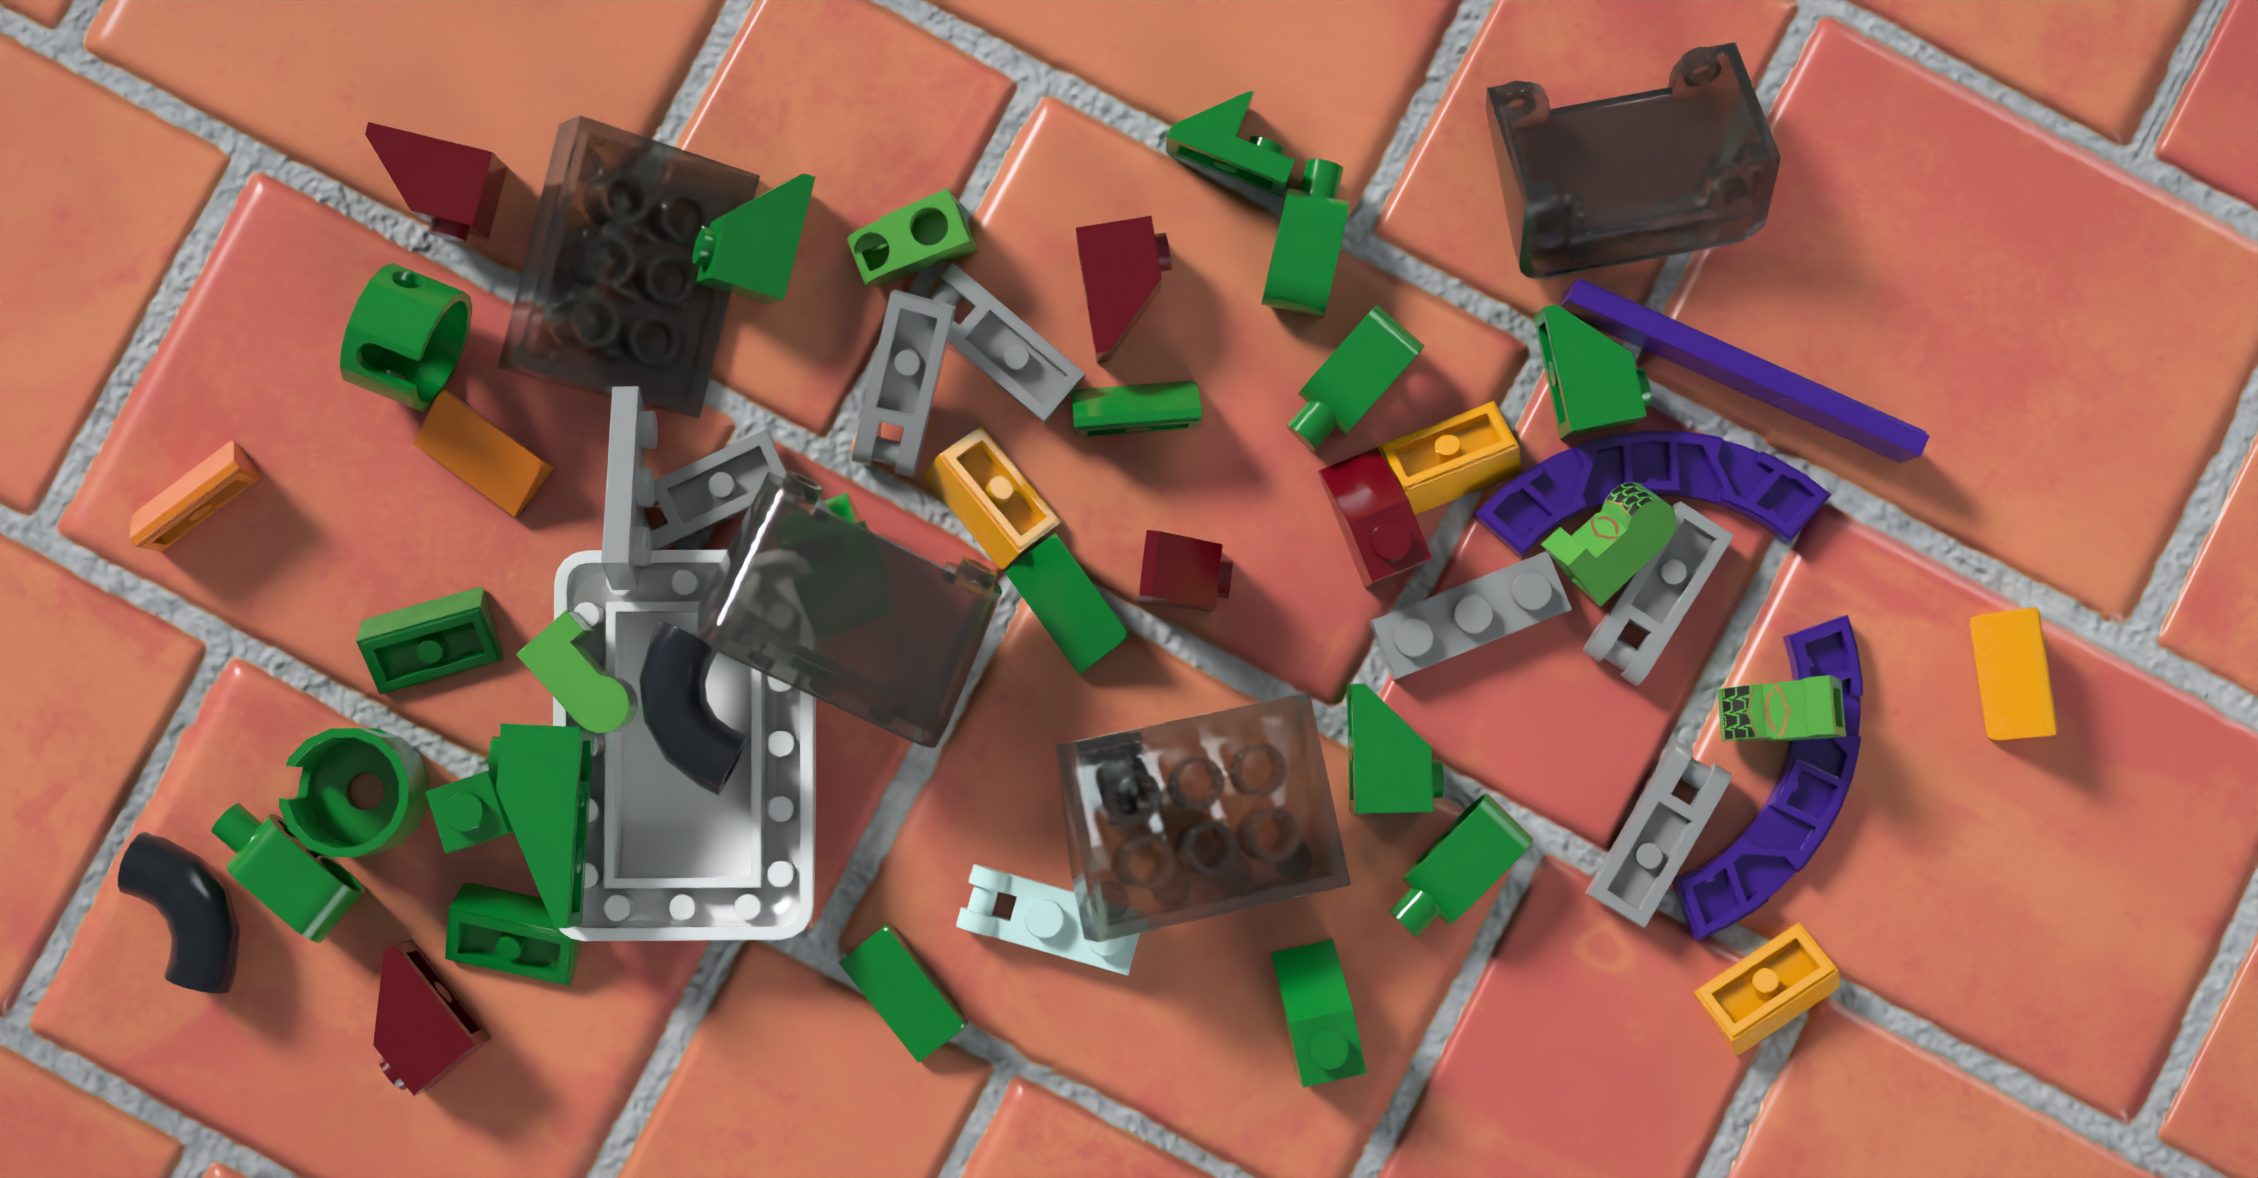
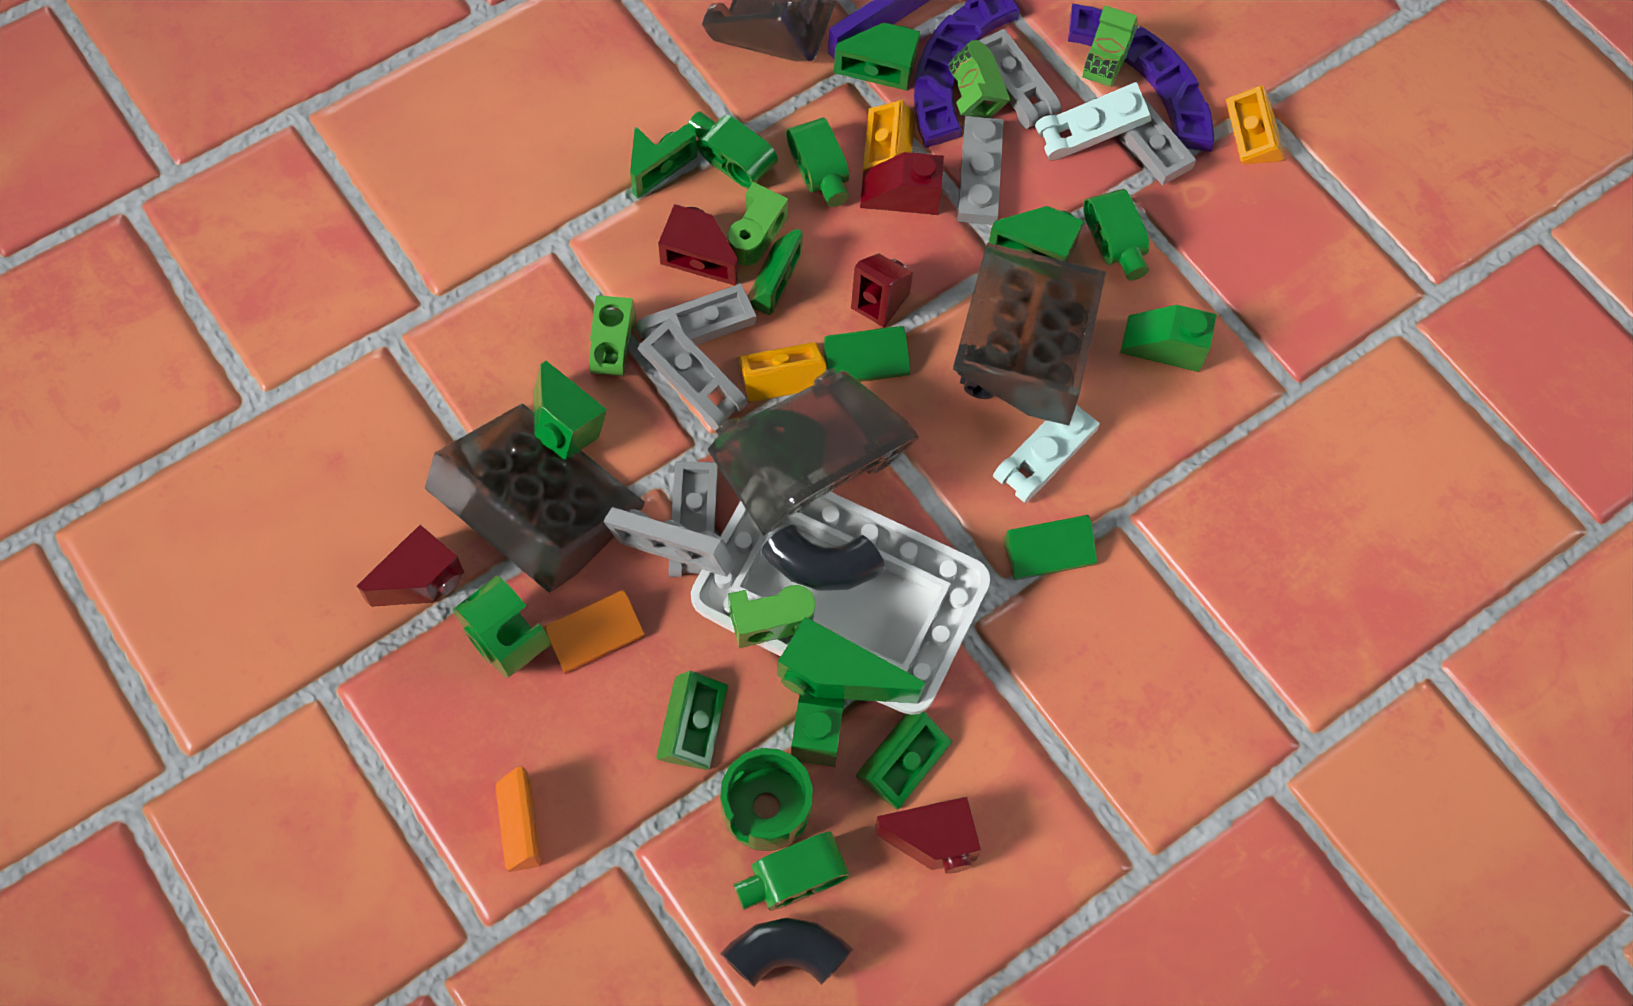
camera: 60 degrees left, 20 degrees down
(1195, 348) = (760, 224): none -> bright green leg
(1633, 748) = (1093, 121): none -> light aqua plate

